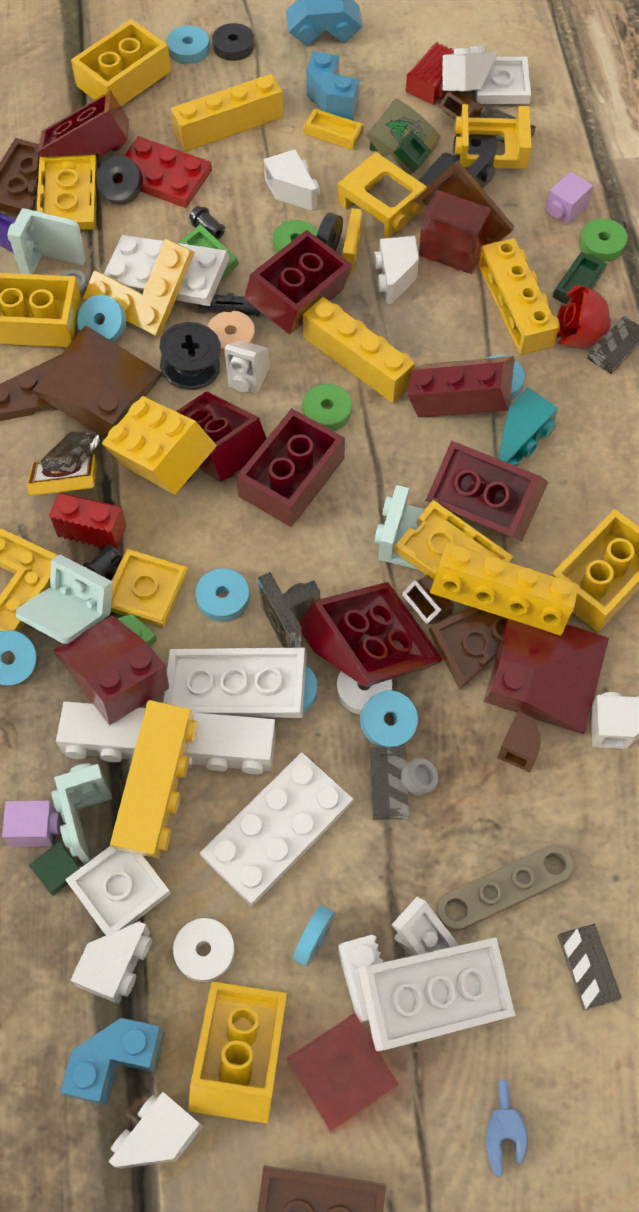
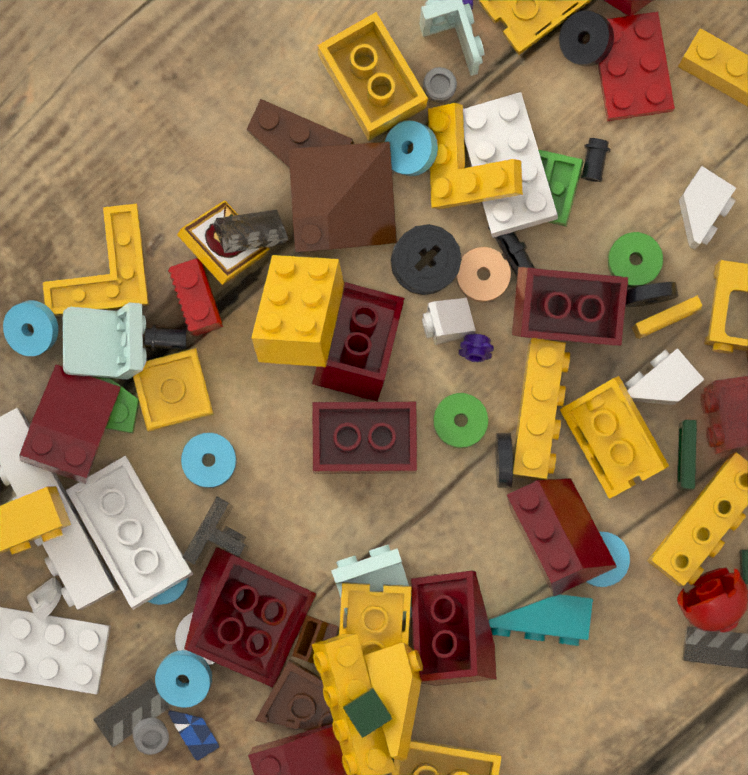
camera: 55 degrees right, 20 degrees up
(240, 790) = (45, 598): none -> white tile
(281, 363) = (476, 348): none -> dark purple plate
(379, 388) = (504, 460): none -> black piece
(415, 313) = (615, 437): none -> yellow piece
(441, 744) = (194, 733): none -> dark blue sticker
(461, 282) = (686, 455): none -> dark green tile
(509, 542) = (398, 684): none -> yellow slope
(518, 562) = (367, 712): none -> dark green tile

